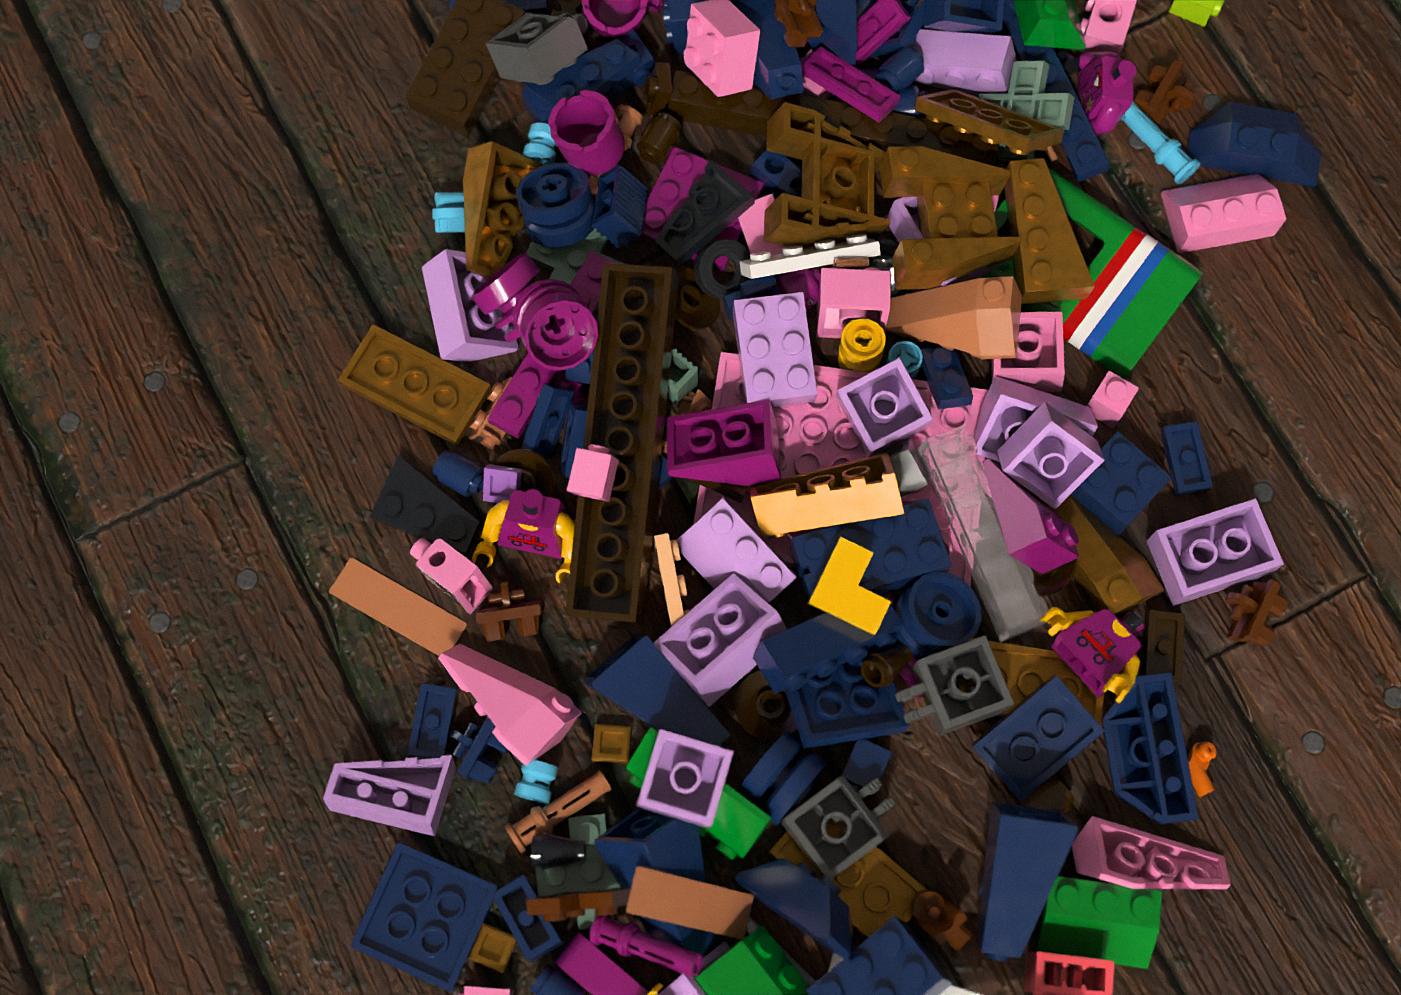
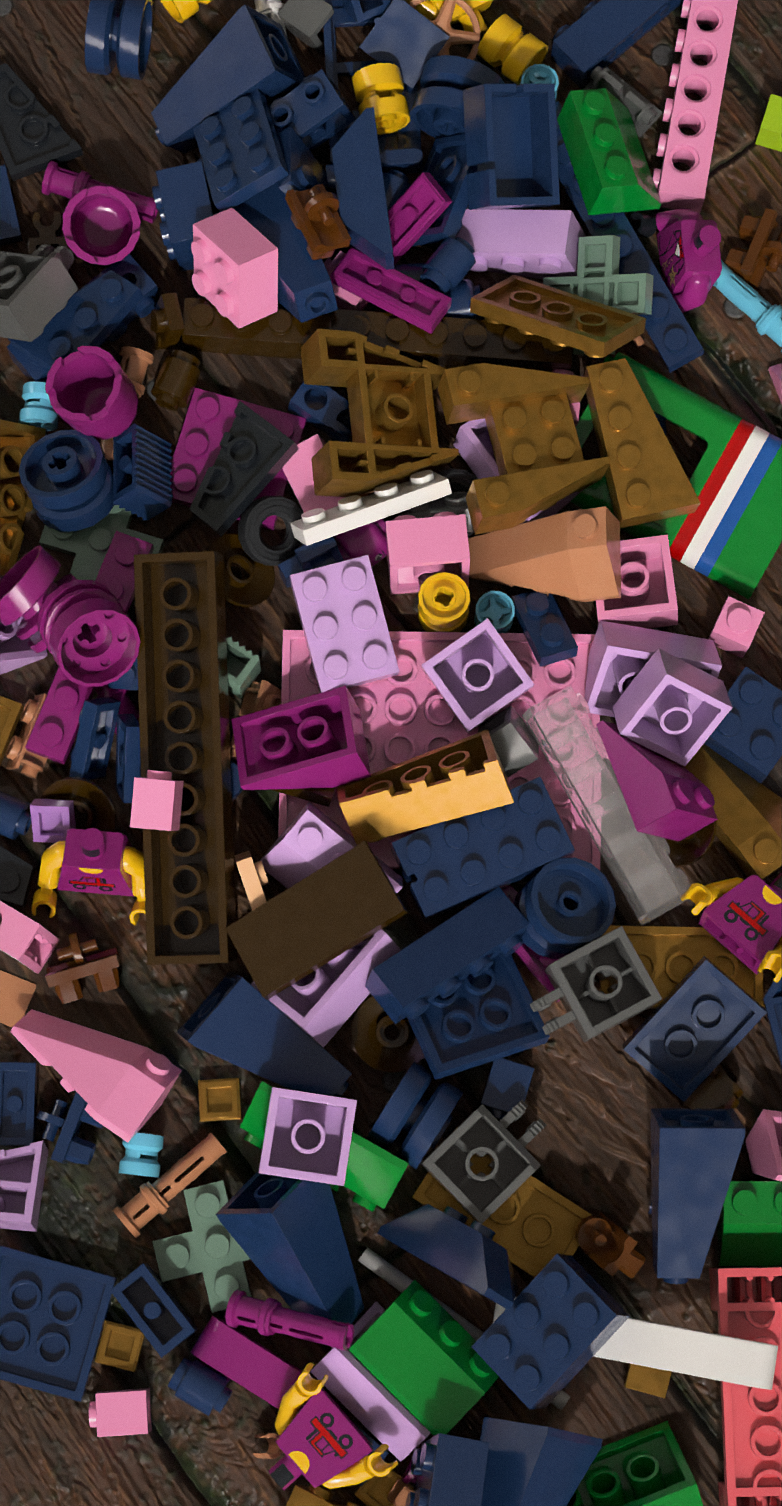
camera: 10 degrees left, 5 degrees up
(556, 851) = (174, 1230): black cone -> none
(573, 903) = (203, 1286): reddish brown plate -> none
(689, 903) = (331, 1269): nougat sticker -> none
(717, 594) = (316, 920): none -> dark brown tile
(839, 589) = (452, 898): yellow tile -> none
(849, 262) = (420, 508): nougat leg -> none
(883, 666) = (514, 972): dark brown cone -> none

